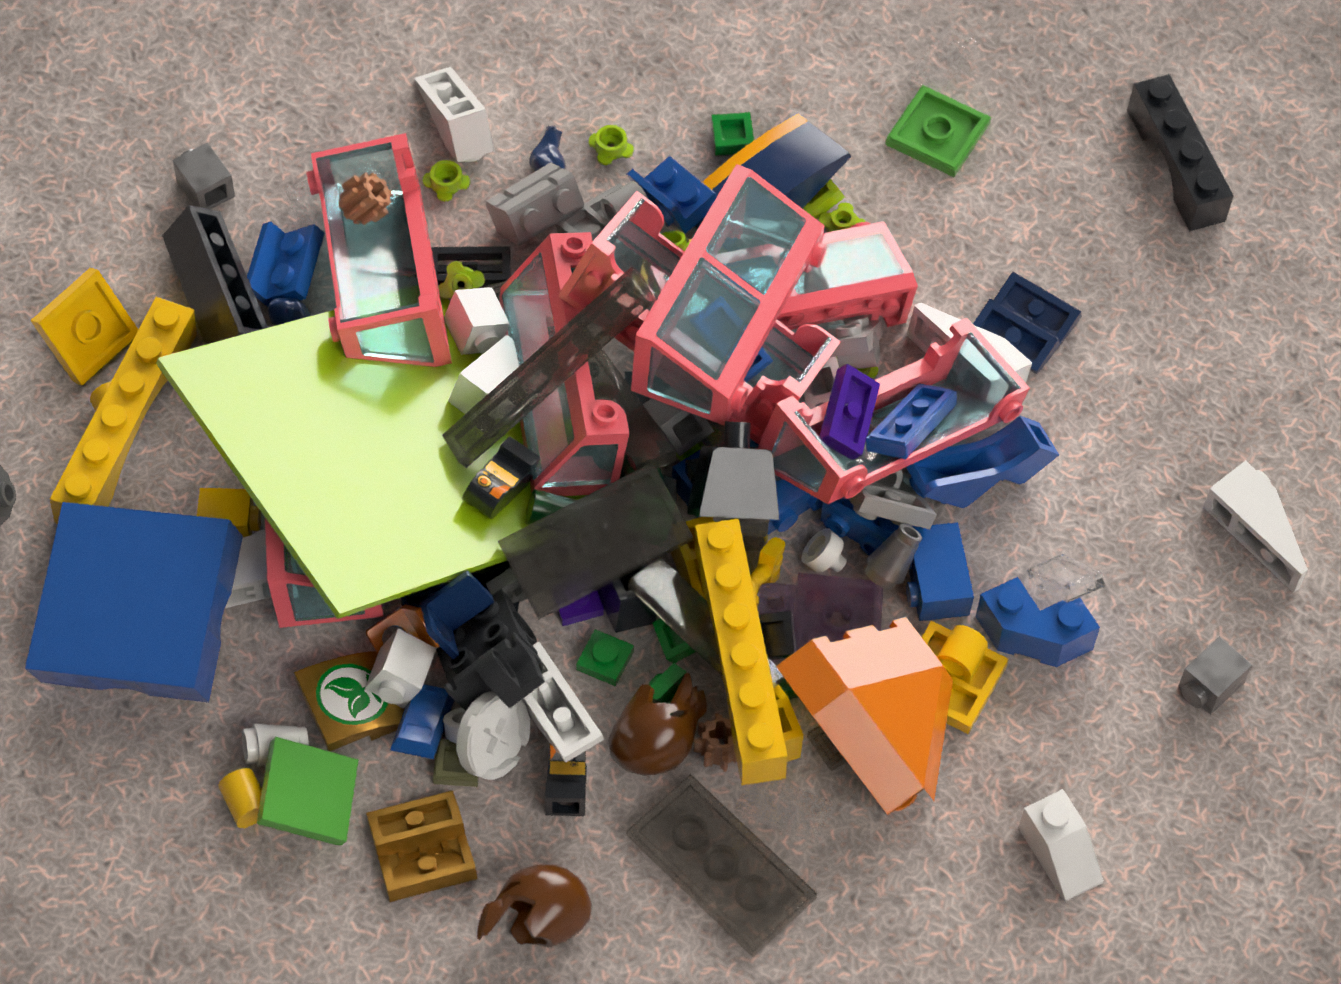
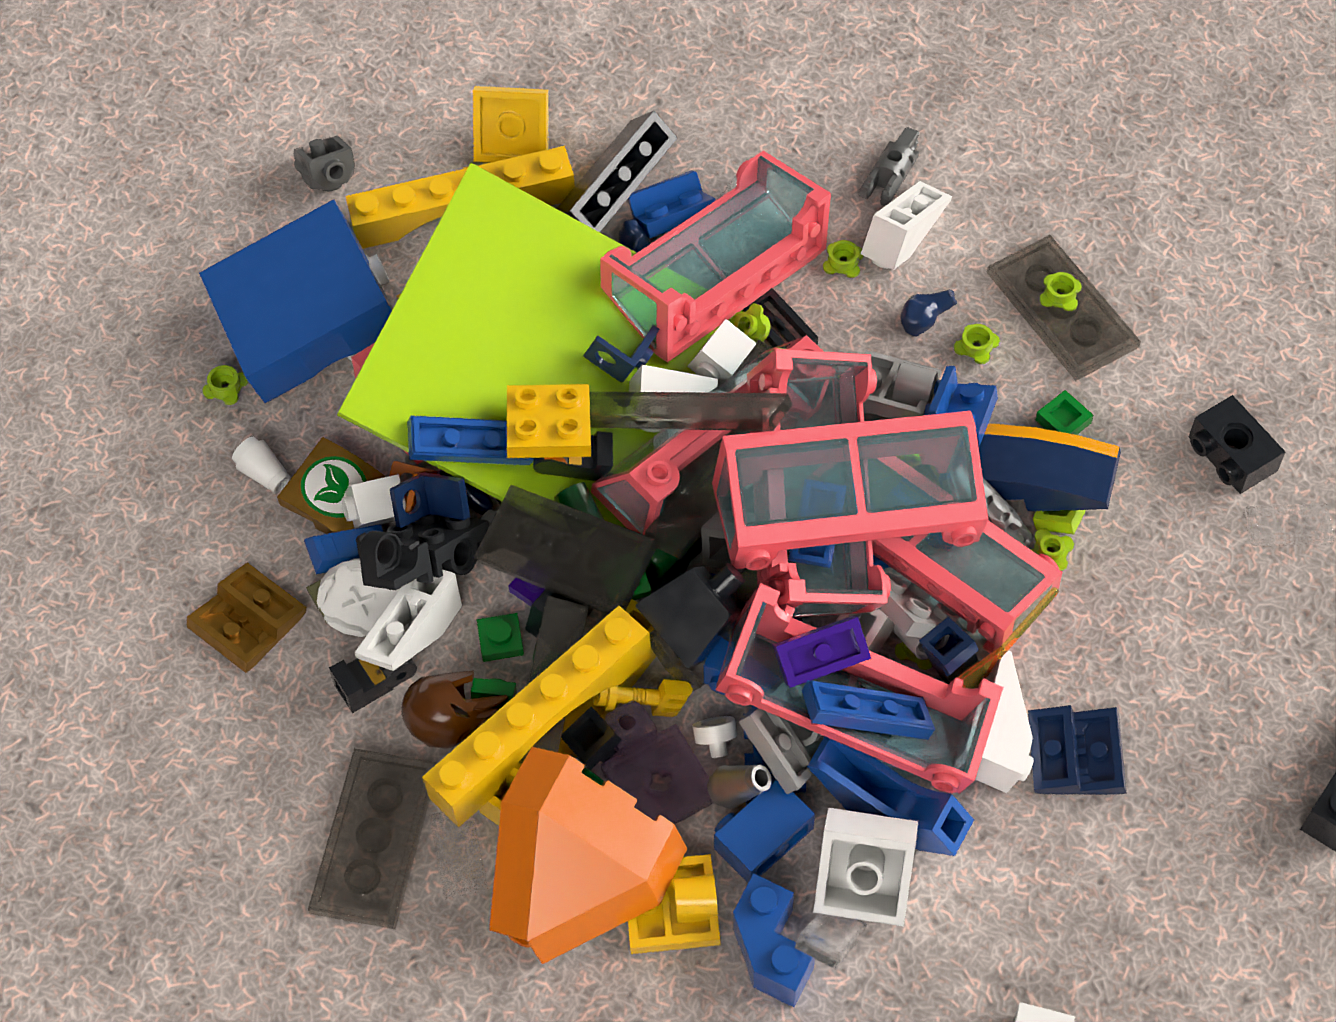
camera: 60 degrees right, 0 degrees up
(152, 715) = (219, 376): none -> lime plate
(203, 177) = (704, 112): flat silver brick -> none
(242, 796) = (203, 476): yellow piece -> none
(307, 791) = (232, 511): bright green tile -> none
(365, 198) = (768, 210): nougat gear -> none
(387, 85) = (892, 167): none -> dark grey hinge
(433, 542) = (459, 440): none -> blue tile
(437, 377) = (624, 364): none -> dark blue bracket
(469, 469) = (548, 421): none -> yellow plate
(535, 203) = (866, 325): light grey brick -> none
(549, 905) = (241, 732): reddish brown helmet -> none
(619, 46) = (1062, 283): none -> lime plate
(625, 66) = (1078, 338): none -> clear smoke tile
(852, 42) = (1233, 425): none -> black brick
(896, 339) = (955, 655): none -> dark blue leg
(917, 299) = (983, 668): none -> clear yellow piece
(938, 131) = (1214, 565): bright green tile -> none
(1030, 515) = (865, 867): none -> white brick

